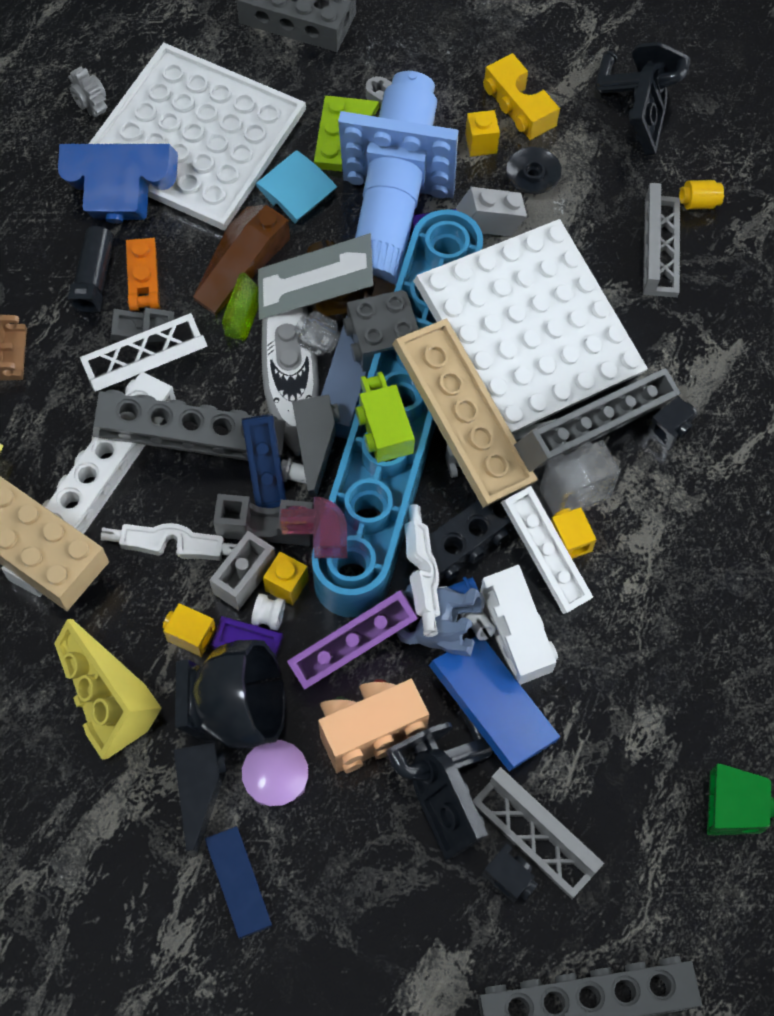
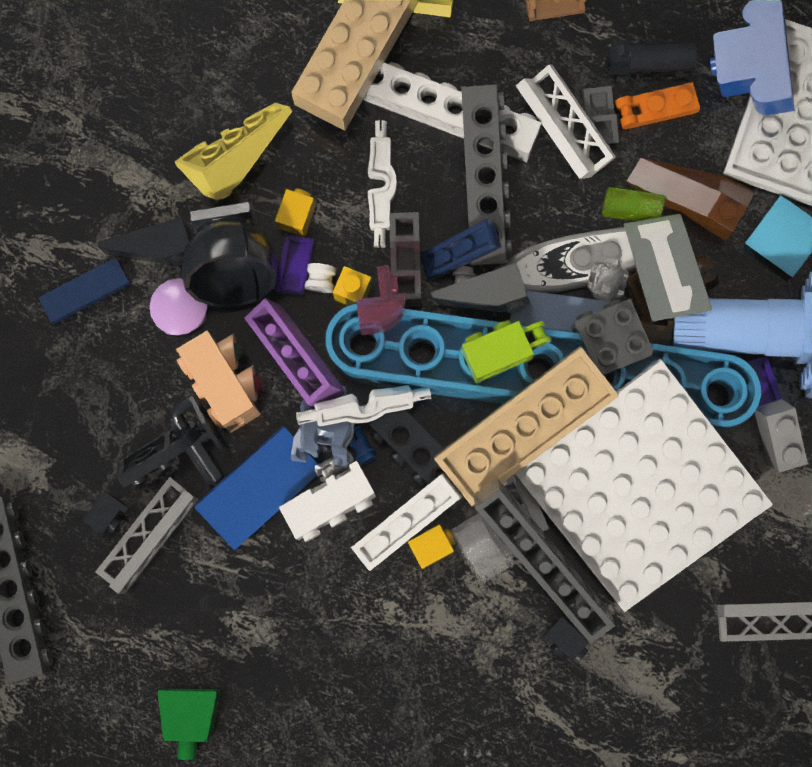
camera: 90 degrees right, 15 degrees up
(242, 570) = (353, 248): light grey brick -> none

